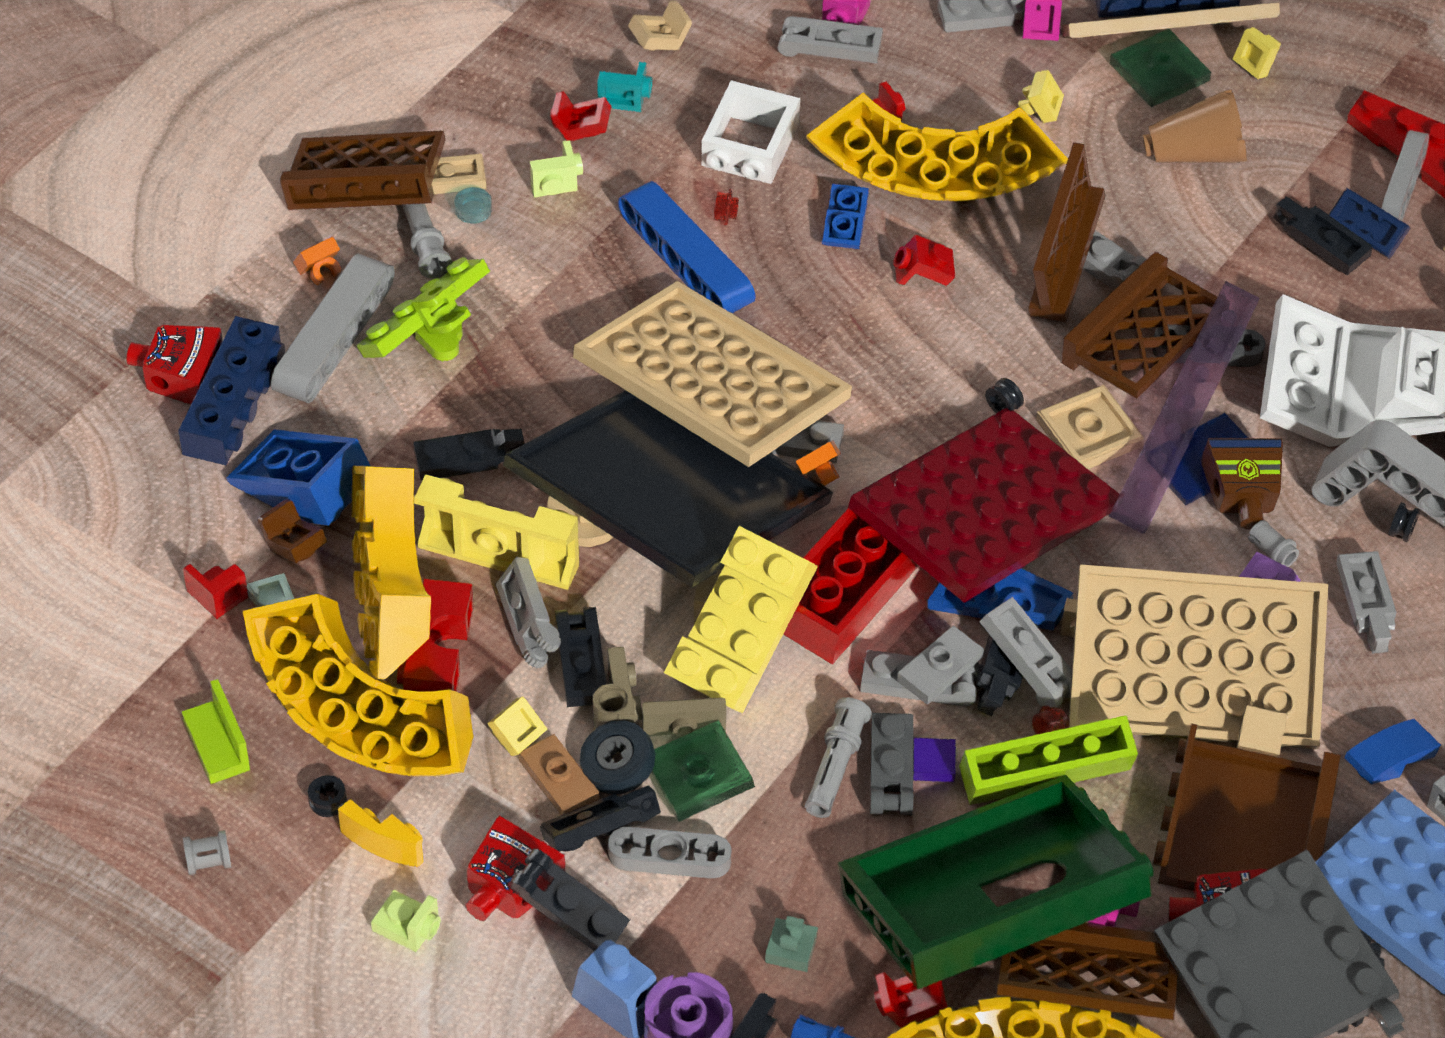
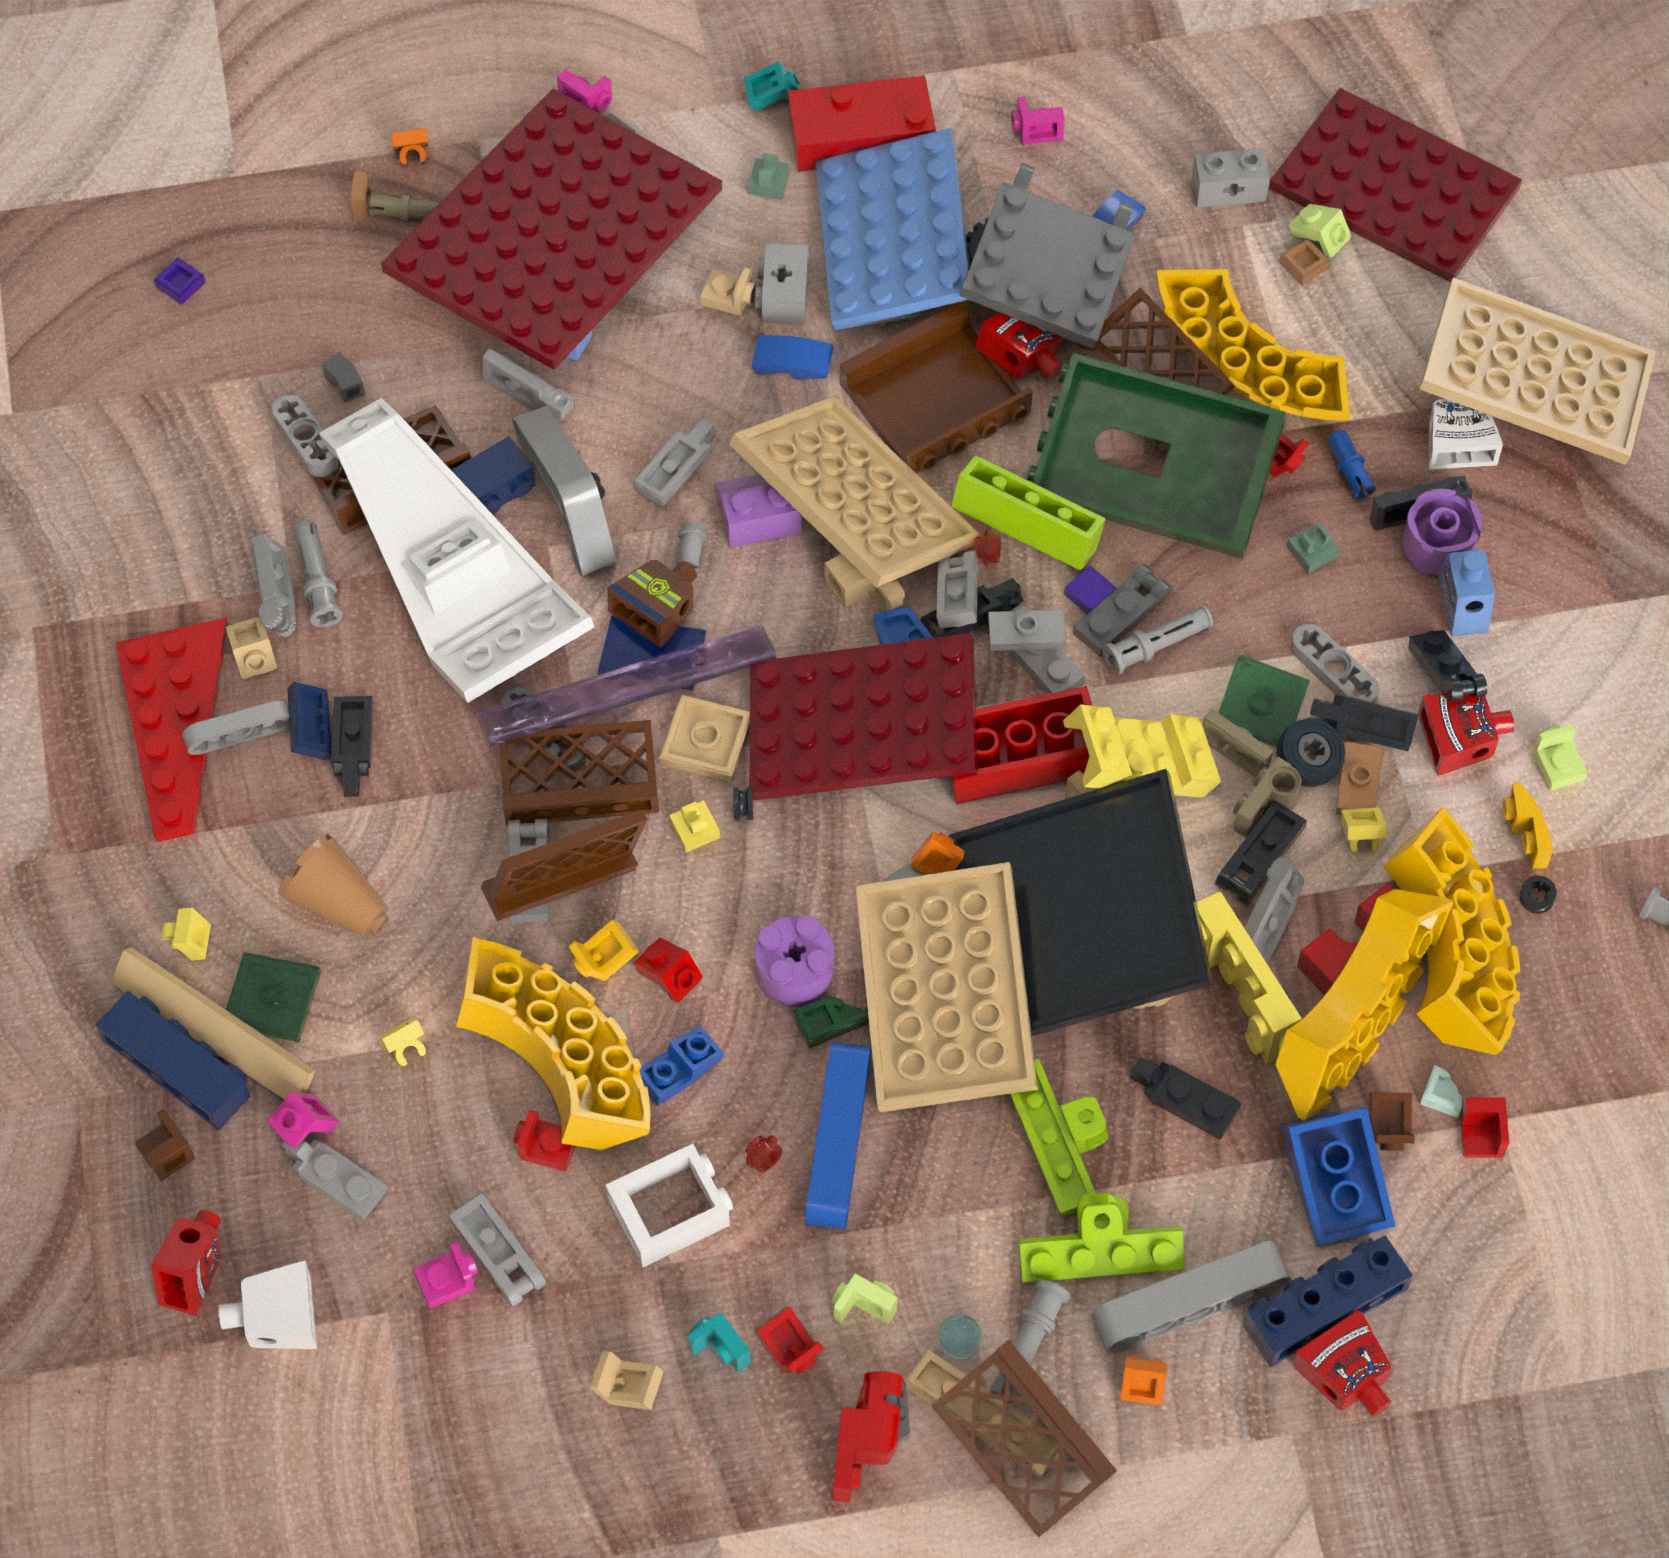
camera: 135 degrees left, 10 degrees up
(217, 737) = (1584, 1001): lime panel -> none
(474, 108) = (871, 1429): none -> red plate
(526, 356) = (1060, 1138): none -> lime plate
(781, 315) = (828, 1019): none -> dark green tile
(840, 320) = (789, 941): none -> medium lavender brick
(979, 232) = (604, 952): none -> yellow bracket
(1022, 365) = (694, 826): none -> light yellow tile
(1262, 731) = (865, 424): tan tile -> none

